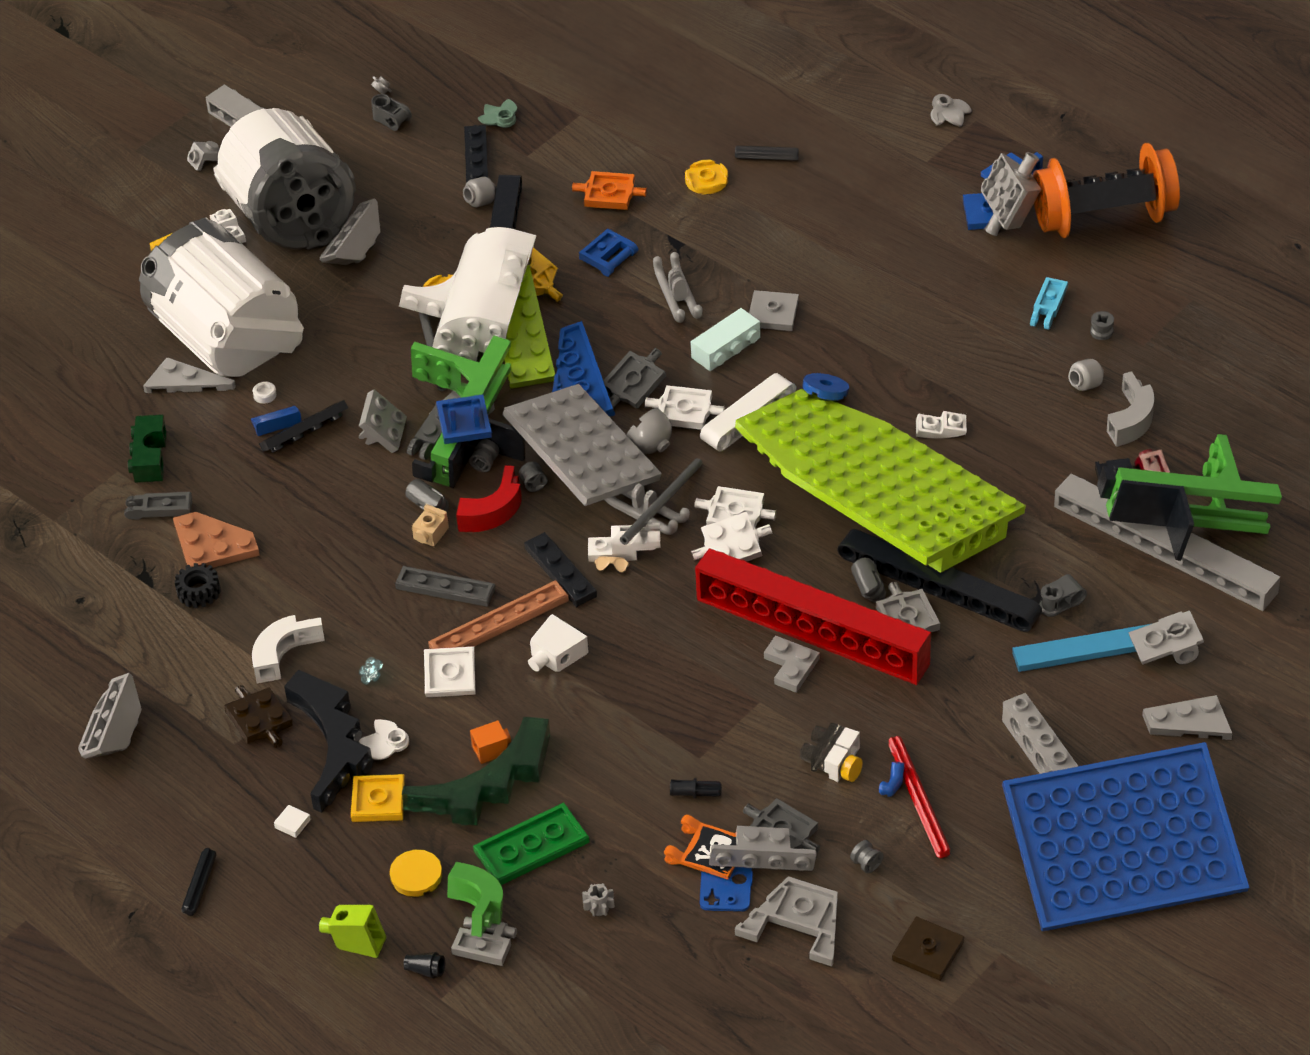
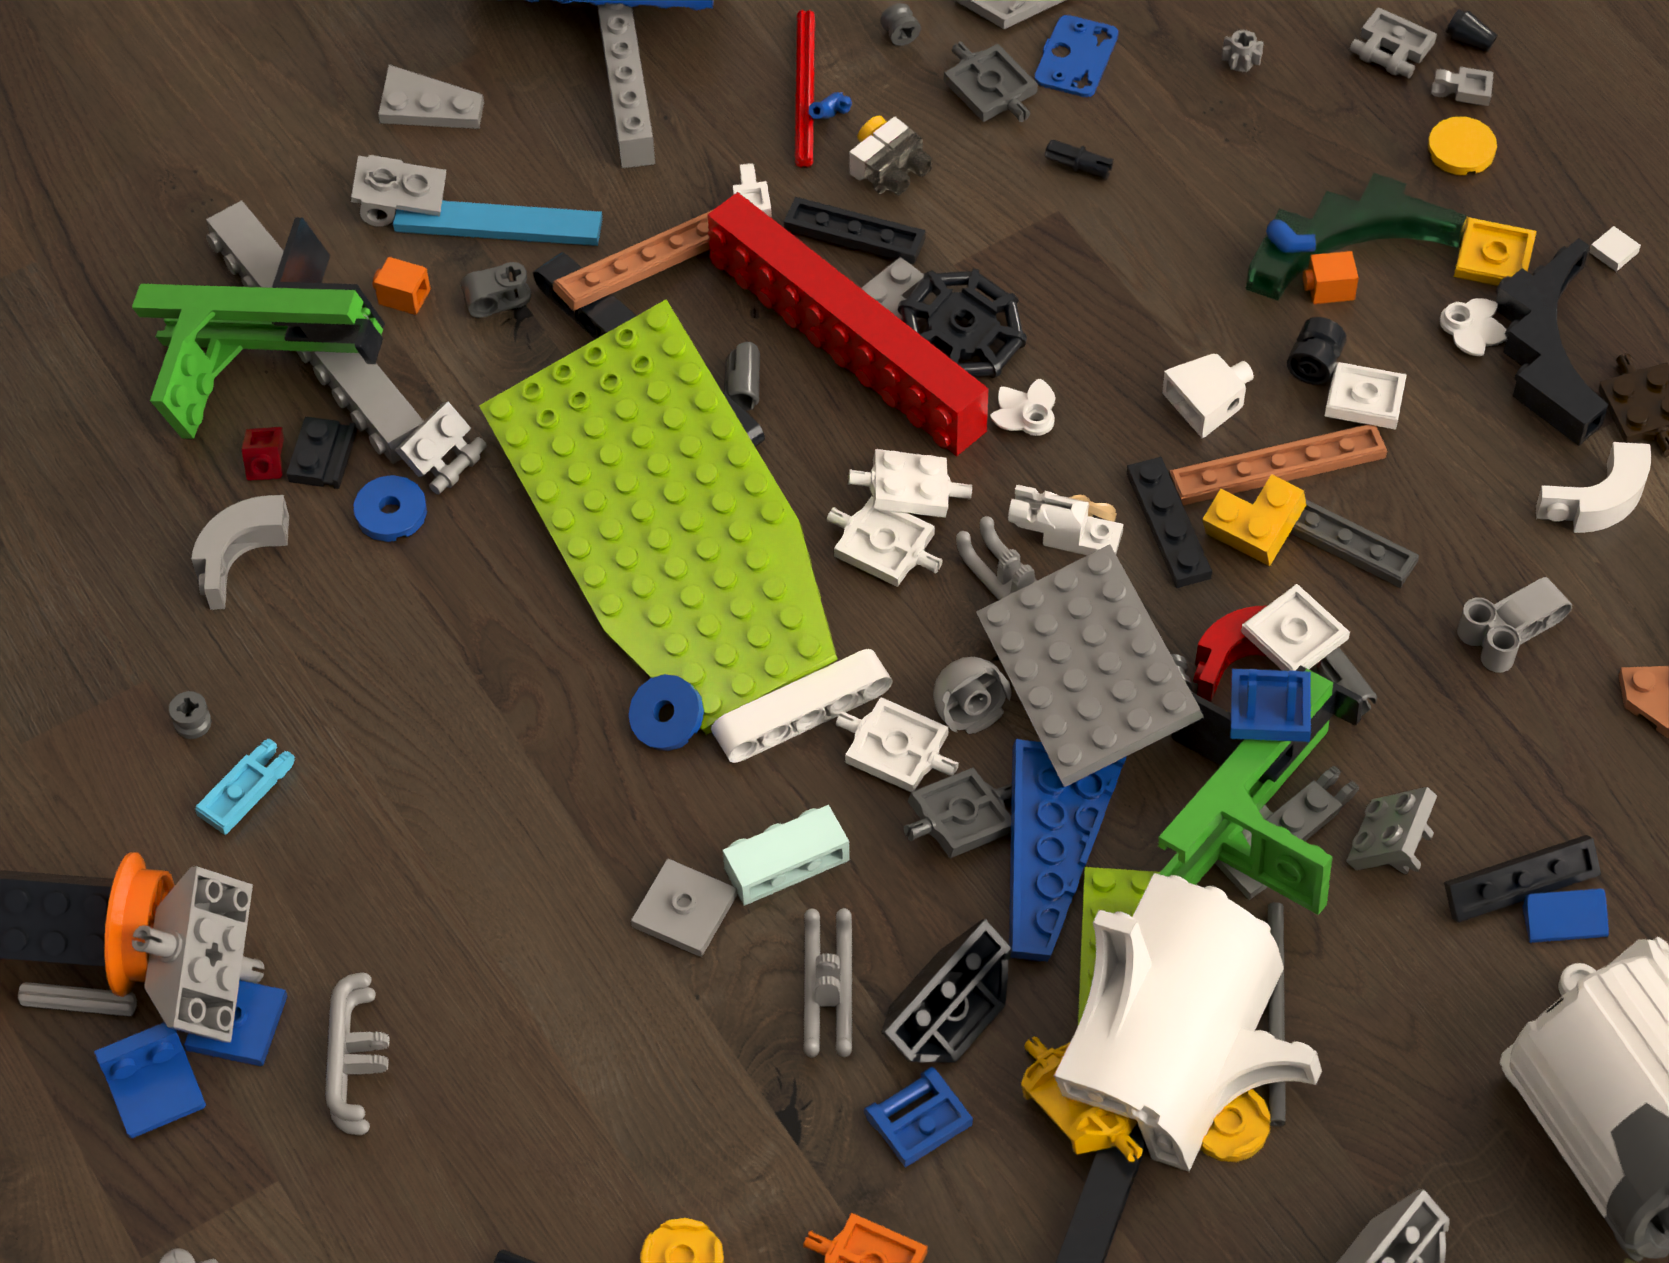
camera: 165 degrees left, 10 degrees up
(329, 556) = (1511, 621): none -> light grey piece
(355, 929) = (1554, 73): lime torso -> none
(370, 671) = (1477, 427): clear light blue plant -> none
(418, 916) = (1469, 85): none -> light grey plate
(430, 525) = (1362, 627): tan brick -> none
(461, 499) = (1295, 630): none -> white tile
(481, 890) = (1391, 93): bright green arch -> none
(488, 684) = (1316, 350): none -> black wheel
(503, 563) = (1257, 527): none -> yellow brick
(523, 734) = (1287, 240): none -> blue arm
(531, 844) = (1306, 148): green tile -> none
(614, 290) = (951, 998): none -> black wedge
(660, 501) = (992, 552): dark grey piece -> none
(674, 612) = (1021, 408): none -> white plate
(699, 848) = (1085, 82): flag -> none
(739, 629) = (968, 304): none -> black plate
(762, 849) = (1027, 44): light grey bracket -> none
(836, 696) = (854, 230): none -> black plate
(910, 608) = (713, 314): light grey plate -> none
(915, 202) = (345, 996): none -> light grey piece
(919, 700) = (754, 192): none -> white plate
(946, 426) = (517, 609): white slope -> none
(966, 633) = (634, 263): none -> nougat tile
(1039, 487) = (433, 439): none -> plate
(1054, 449) = (388, 491): none -> blue tile
(1086, 374) = (267, 624): light grey head -> none
(1126, 581) = (401, 285): none -> orange brick

